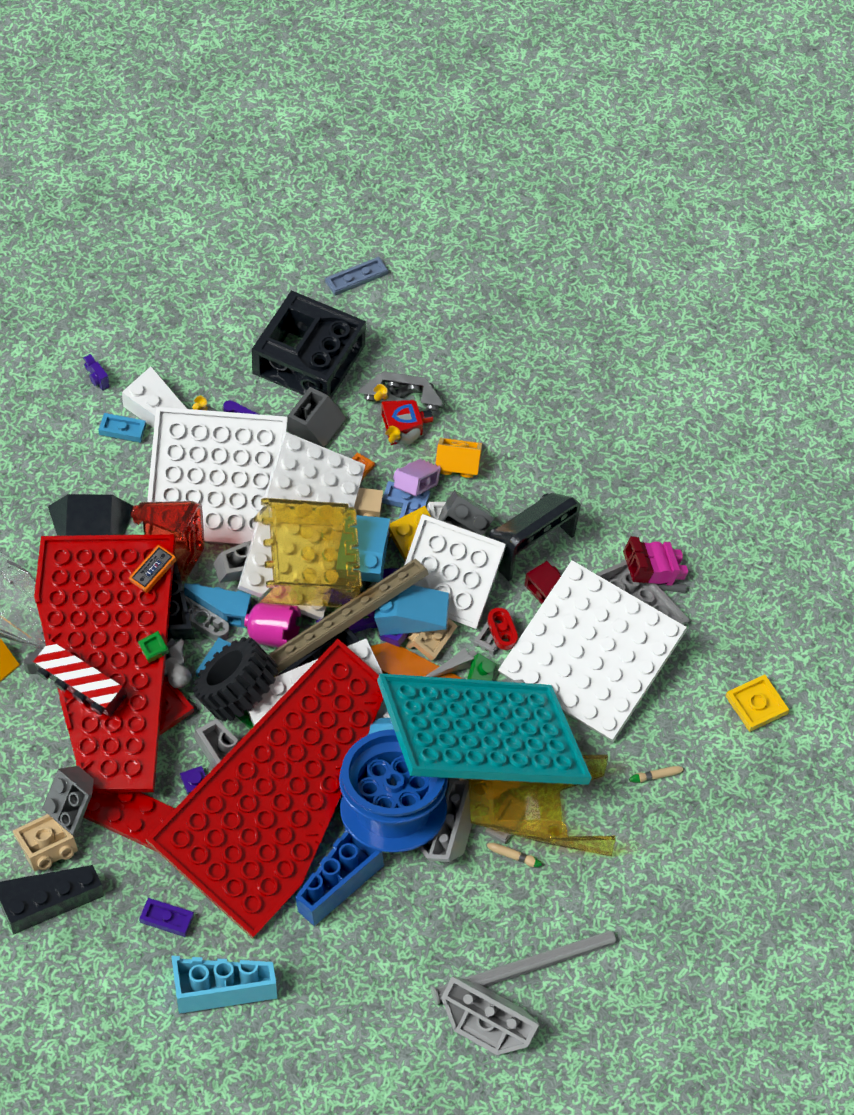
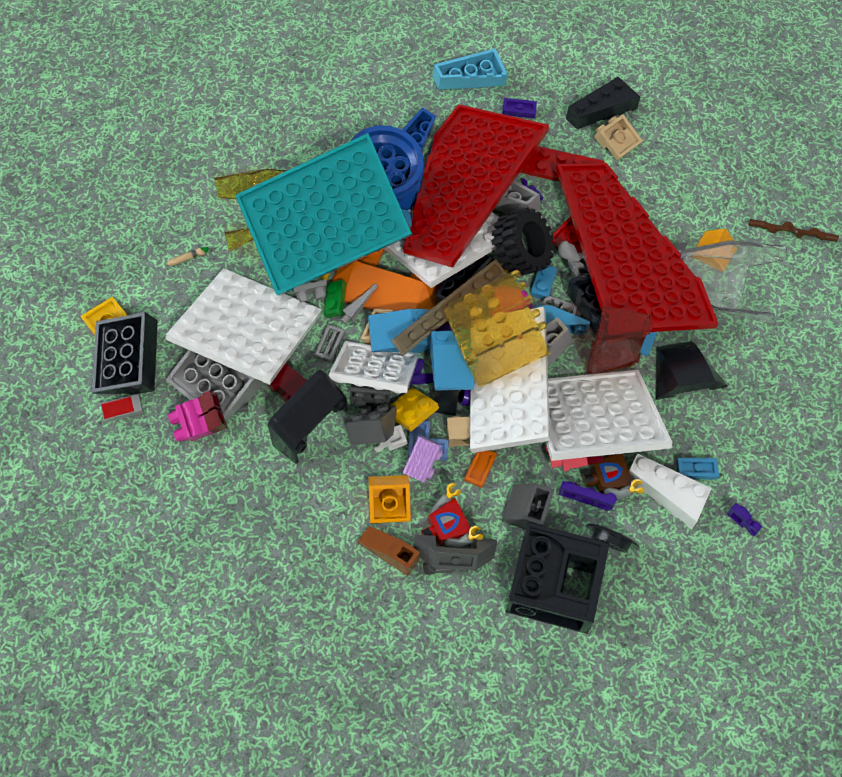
camera: 170 degrees right, 5 degrees up
(69, 797) = (609, 150): dark grey slope -> none
(80, 679) = (639, 218): brick -> none
(152, 569) = (618, 296): tile -> none
(153, 646) = (593, 246): green tile -> none
(243, 365) = (617, 540): none -> black wheel
(356, 276) = (535, 696): sand blue tile -> none
(467, 406) = (390, 549): none -> dark orange slope
(487, 1017) = (288, 81): light grey wedge -> none
(502, 630) = (324, 336): red plate -> none
(535, 962) = (271, 117): light grey axle -> none
(735, 648) = (125, 355): none -> black slope
(740, 601) = (121, 408): none -> tile

